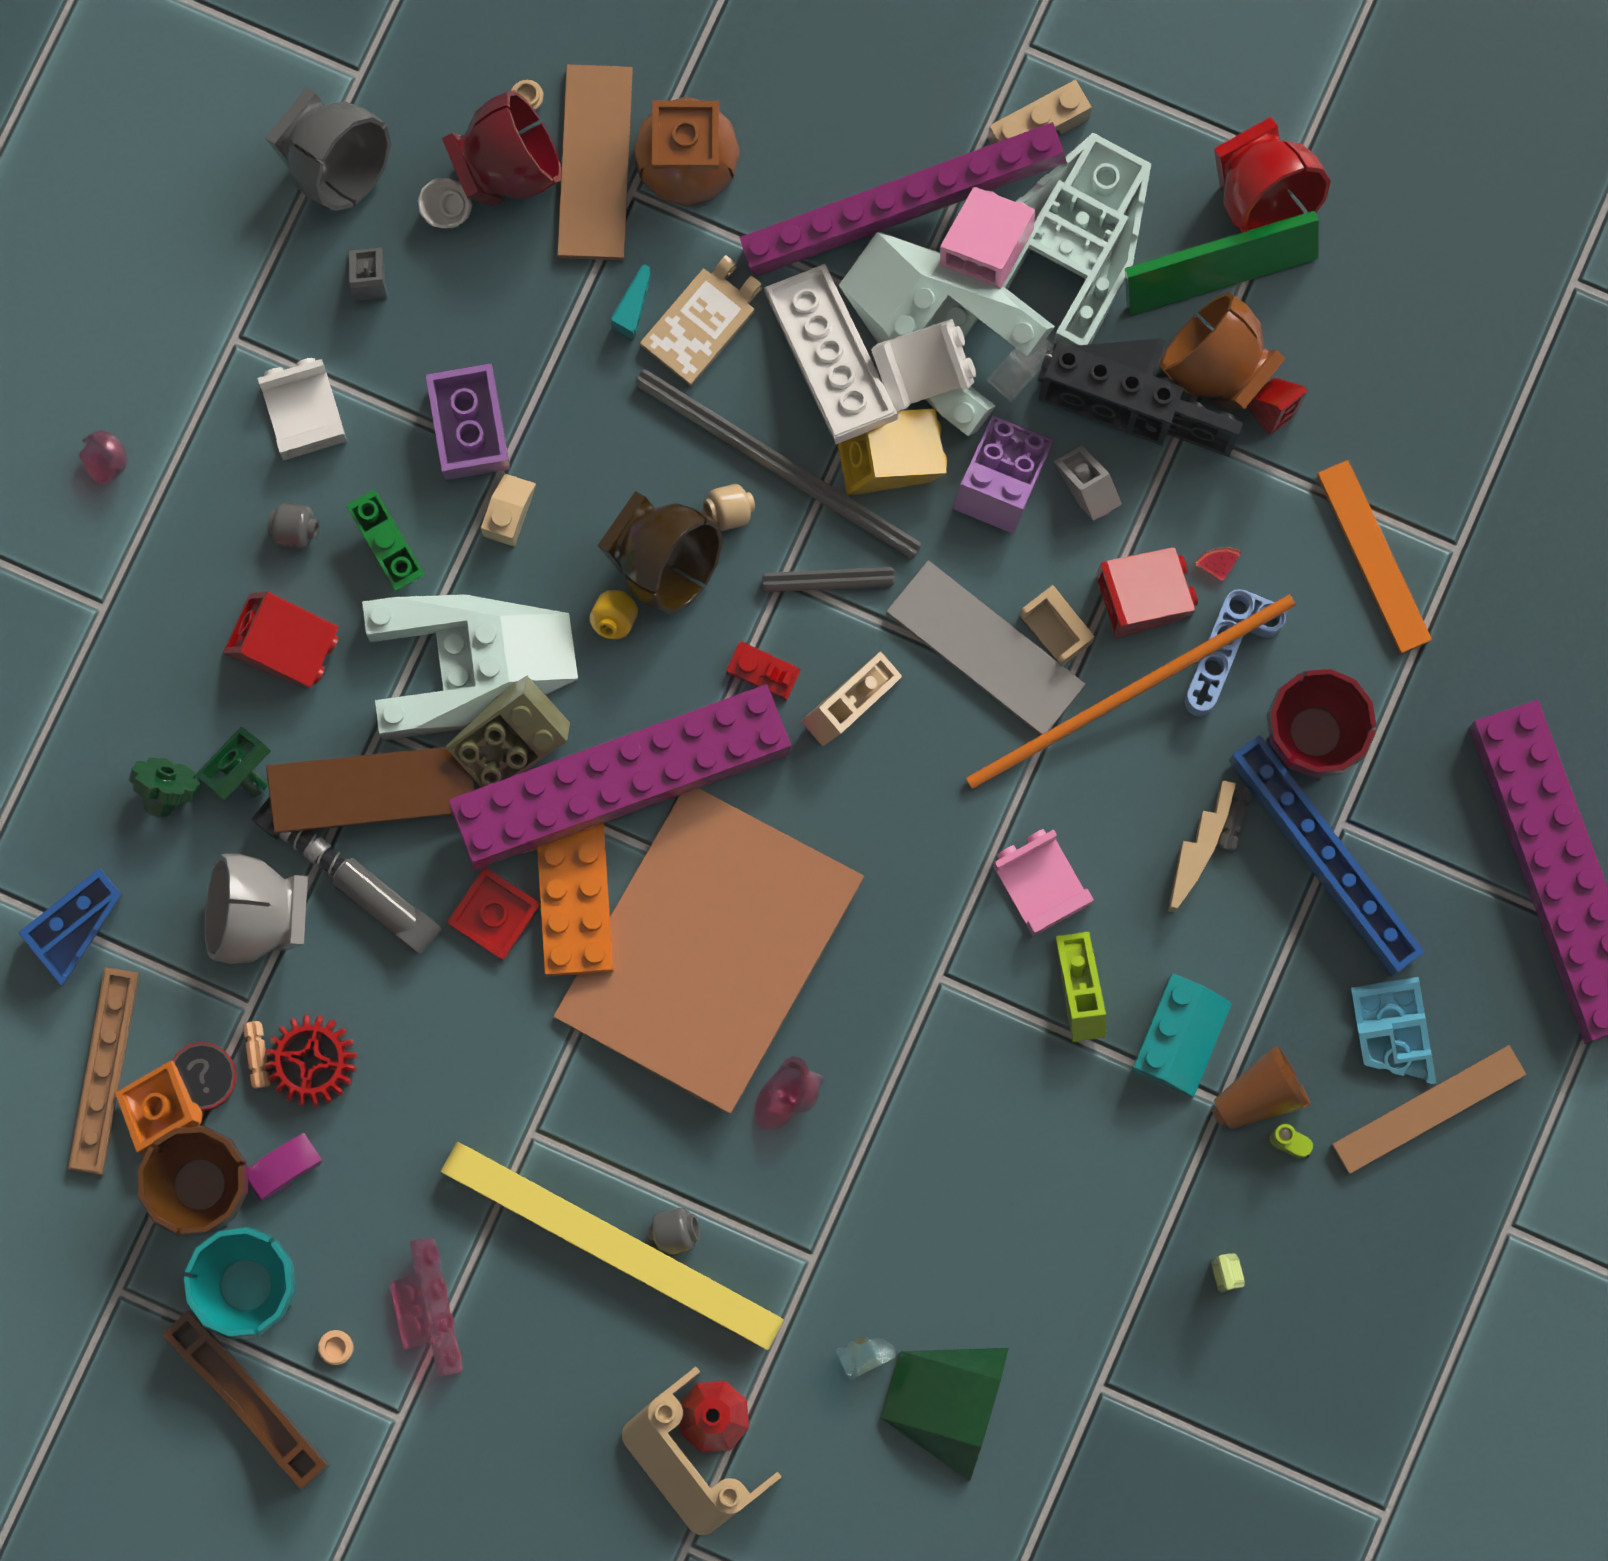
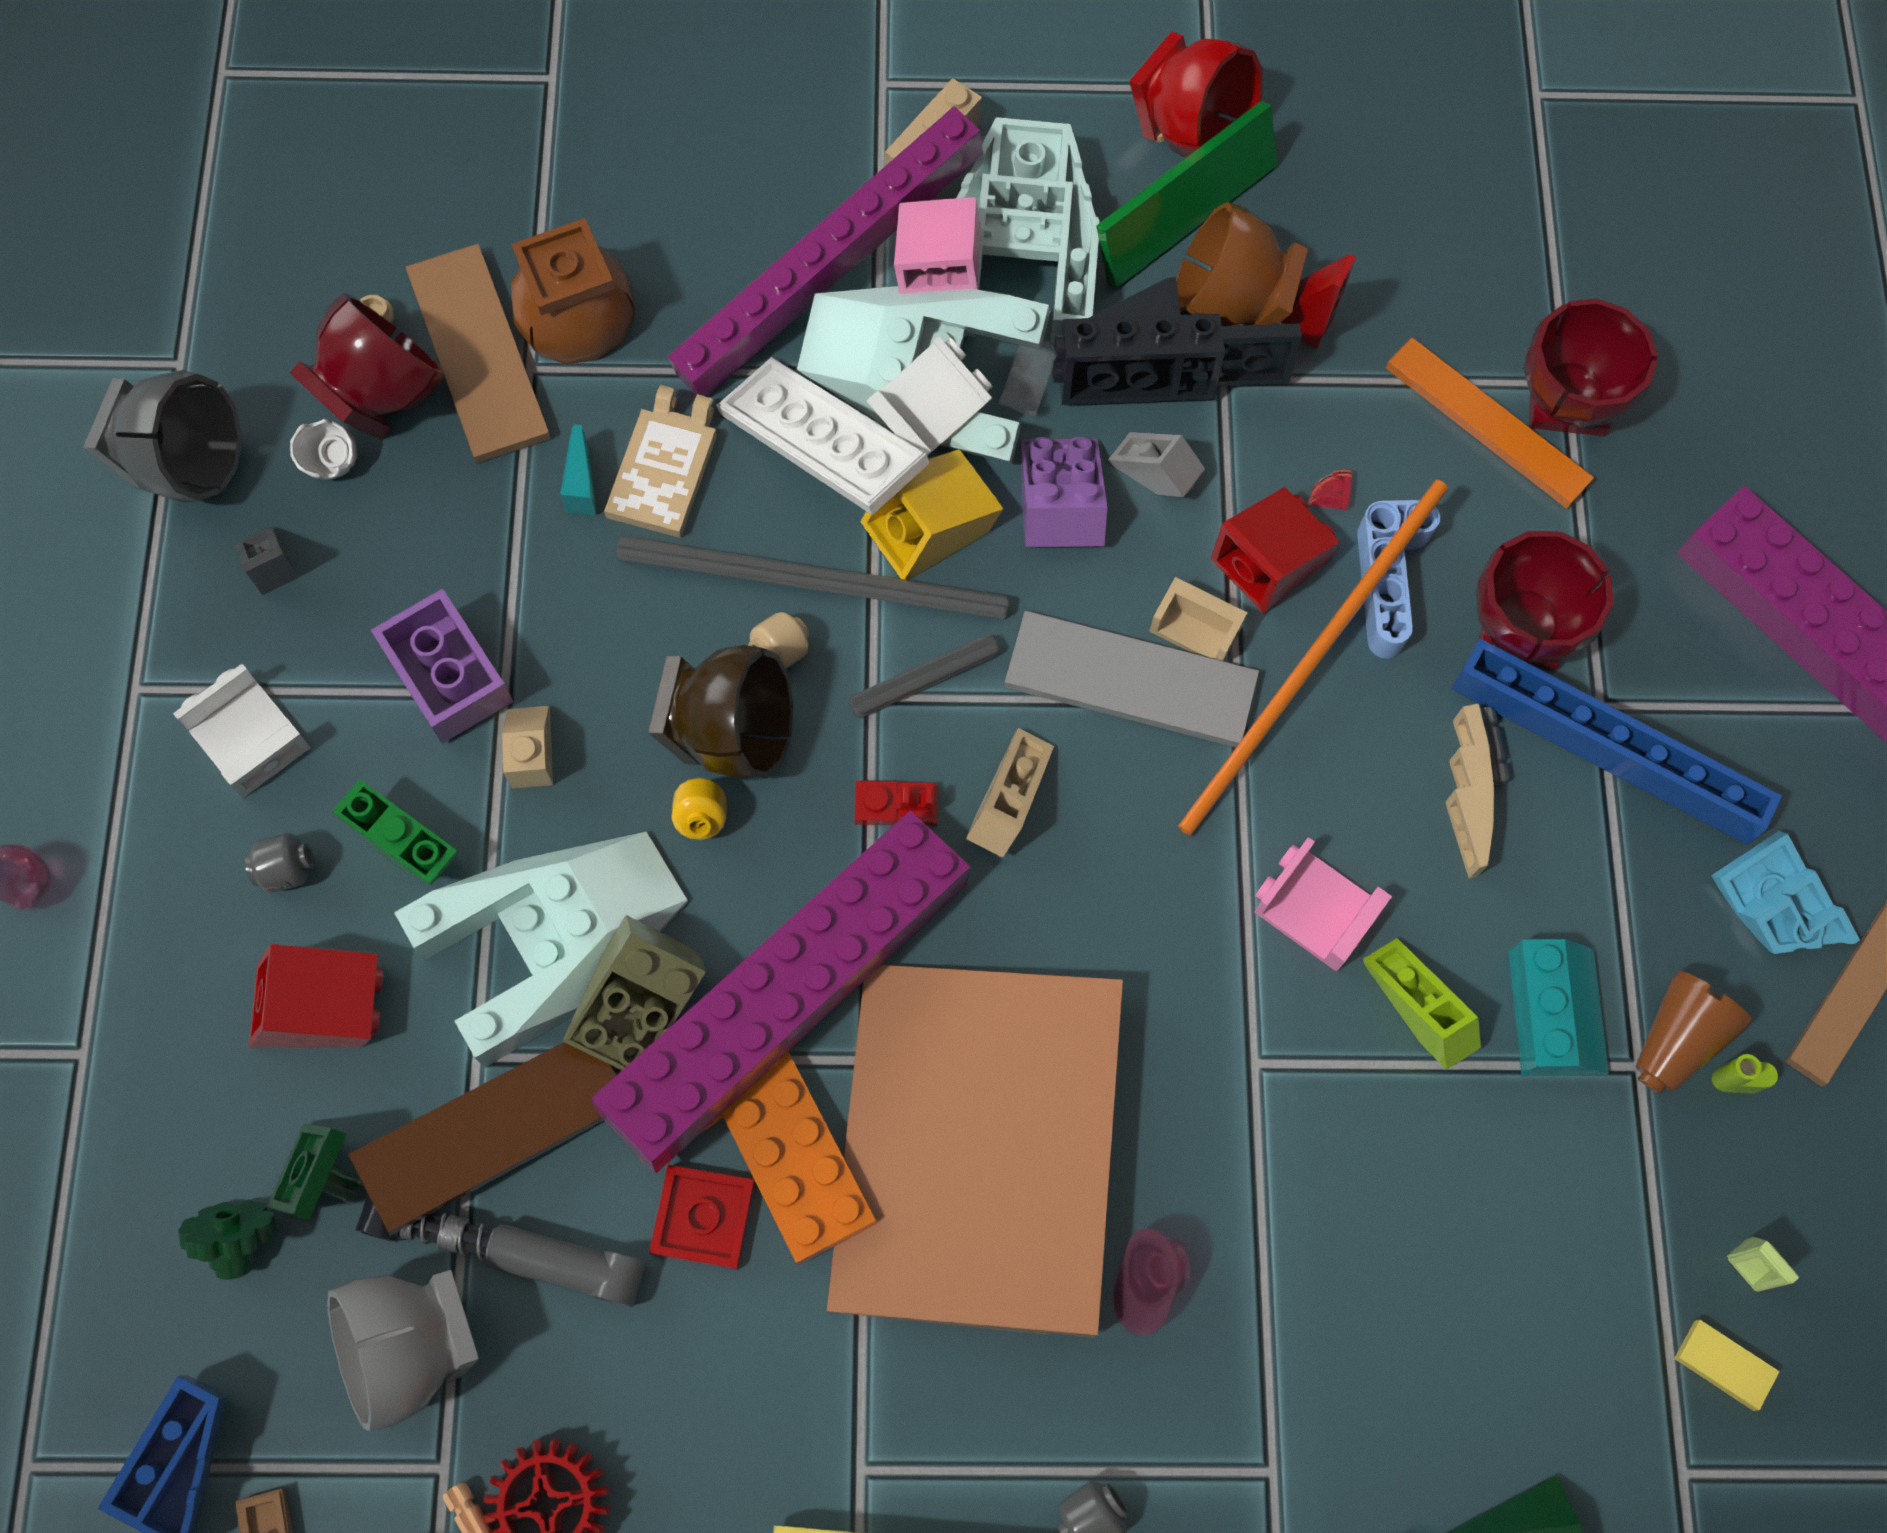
camera: 25 degrees left, 10 degrees down
(1168, 1330) = (1727, 1365): none -> light yellow tile
(1462, 549) = (1587, 367): none -> dark red plate

